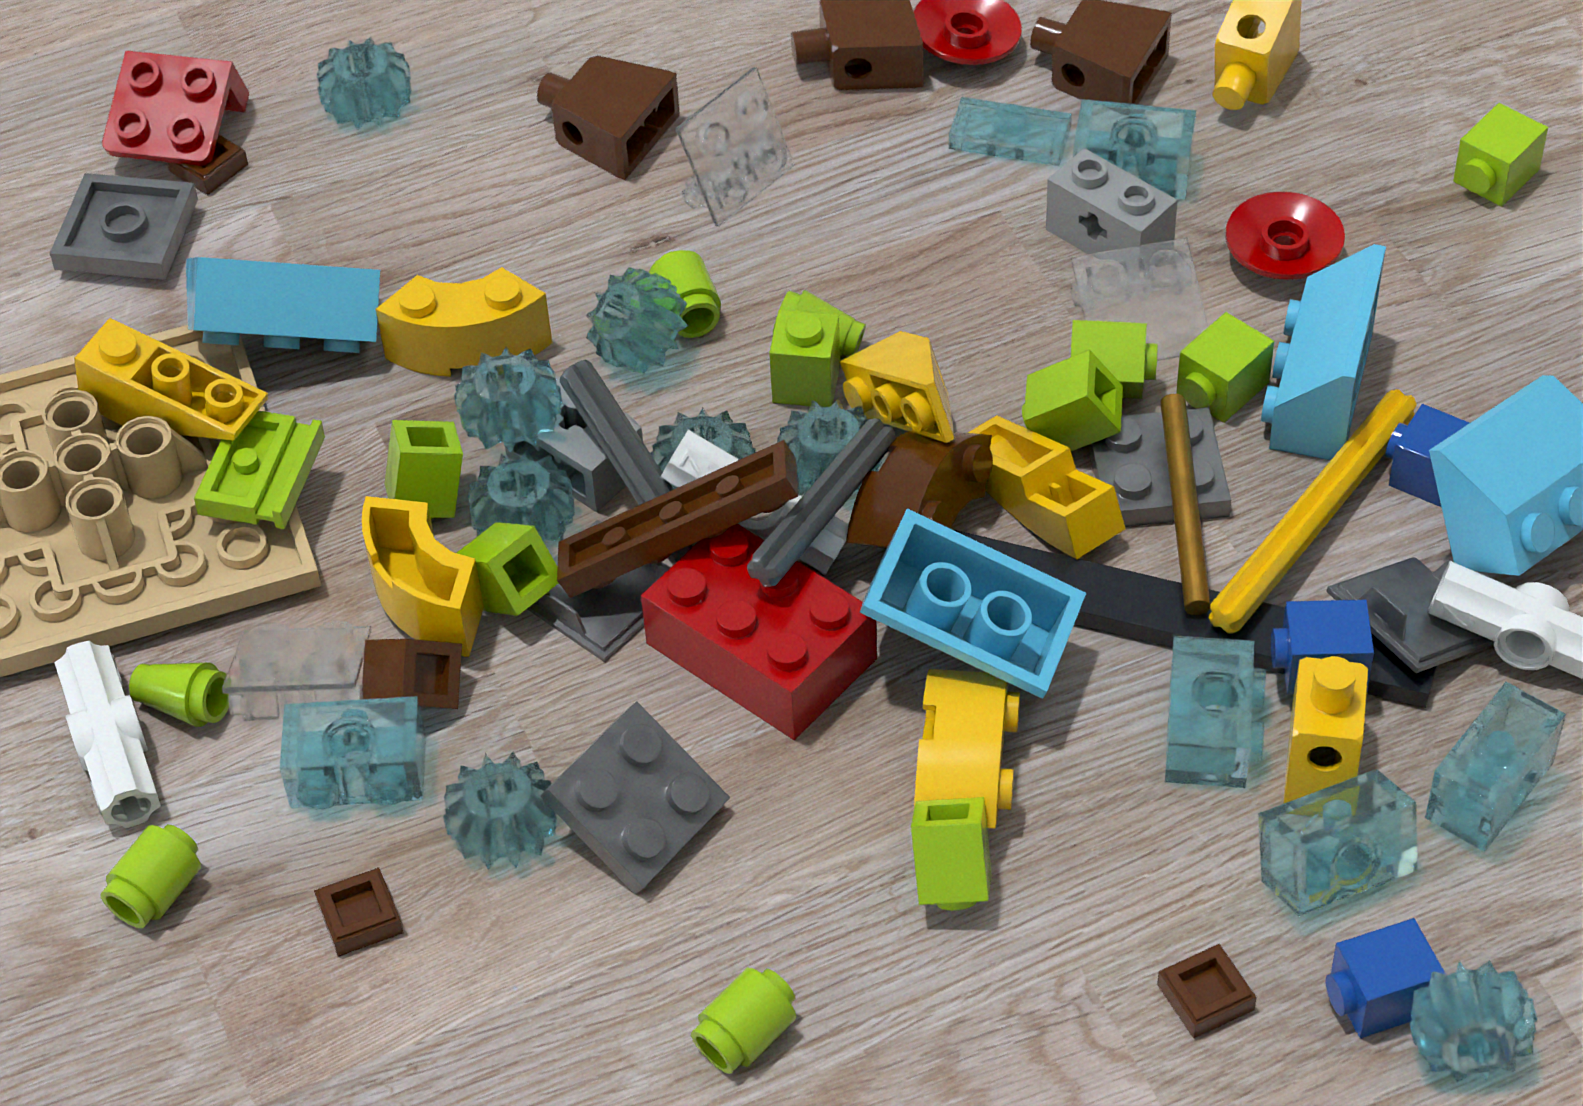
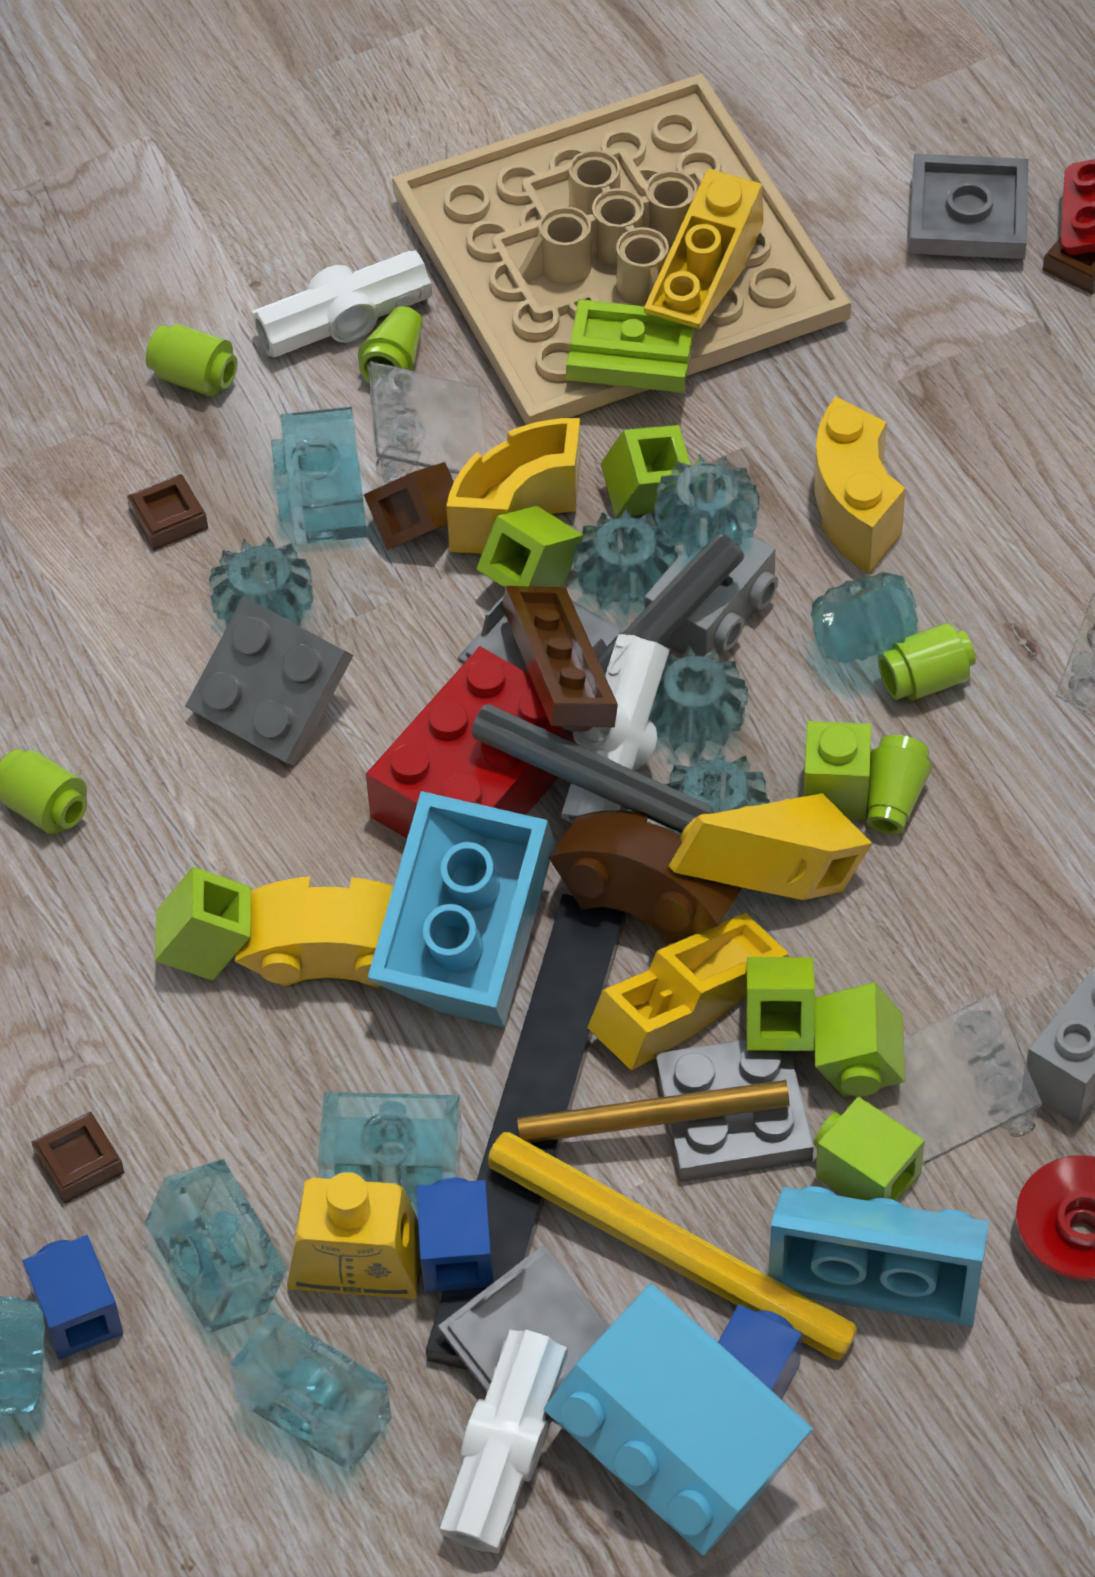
camera: 85 degrees right, 5 degrees up
(282, 302) = (858, 324): medium azure slope -> none

